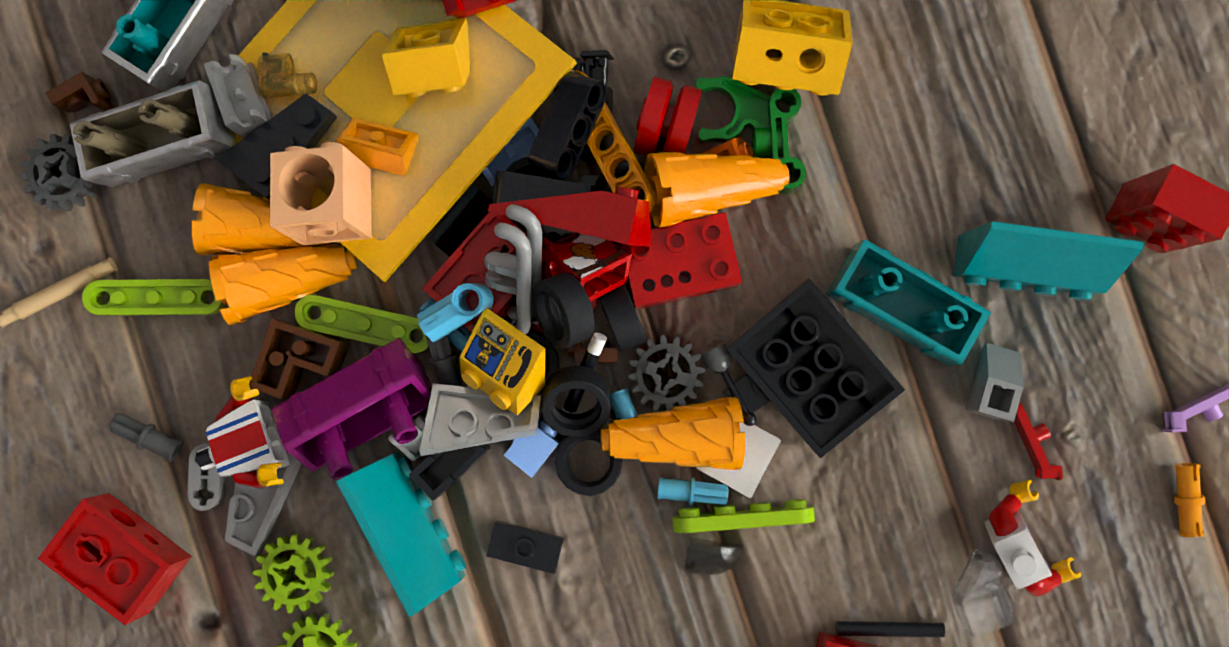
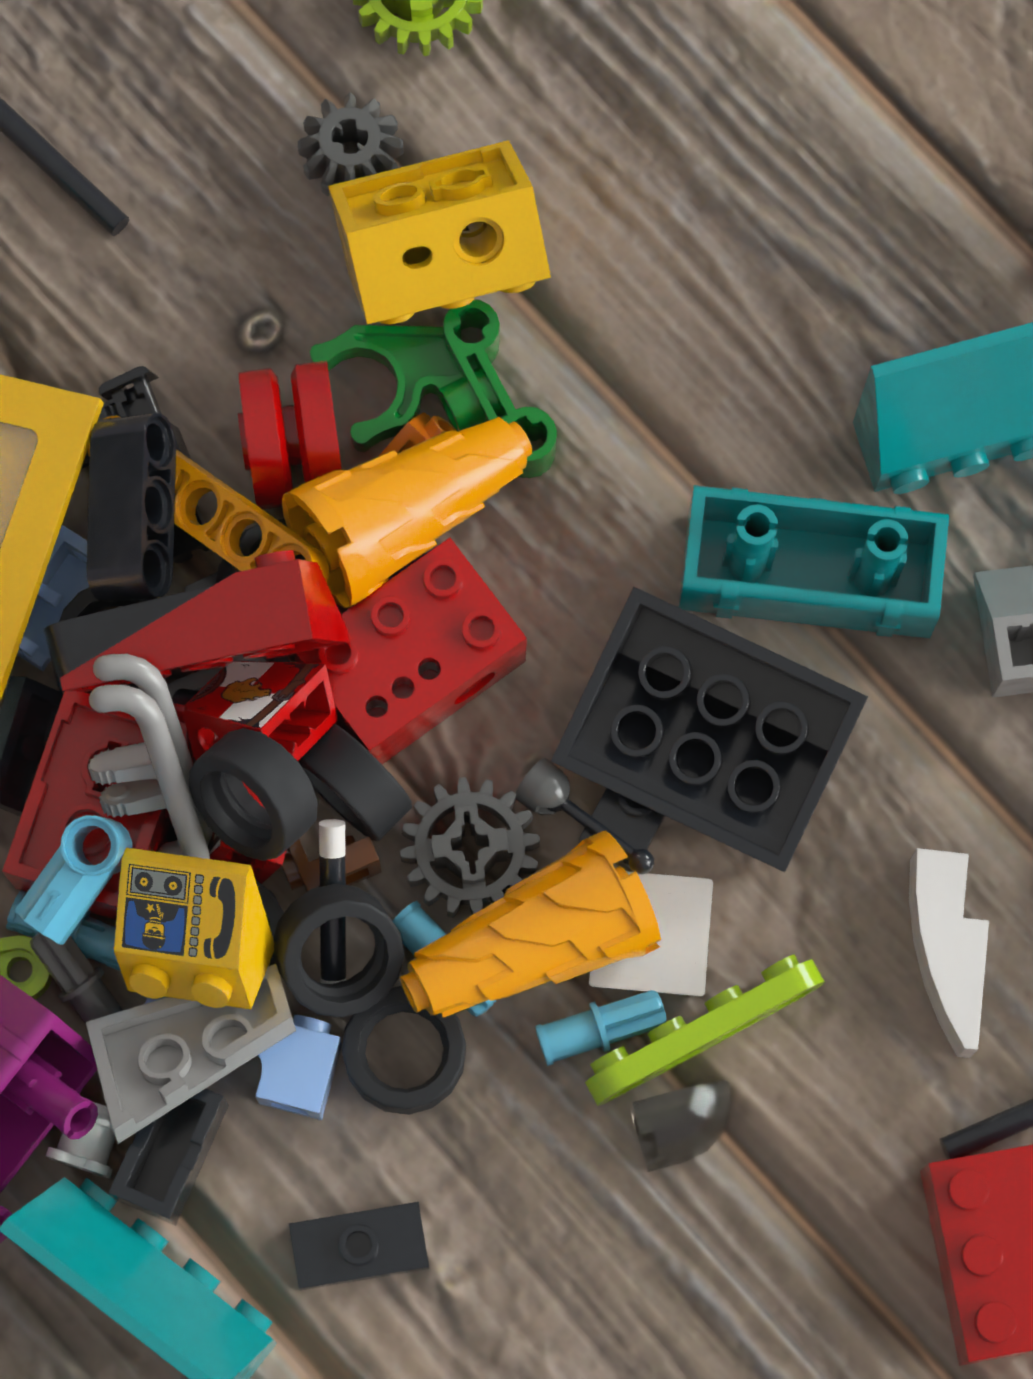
camera: 35 degrees left, 10 degrees down
(884, 531) = (947, 945): none -> white slope

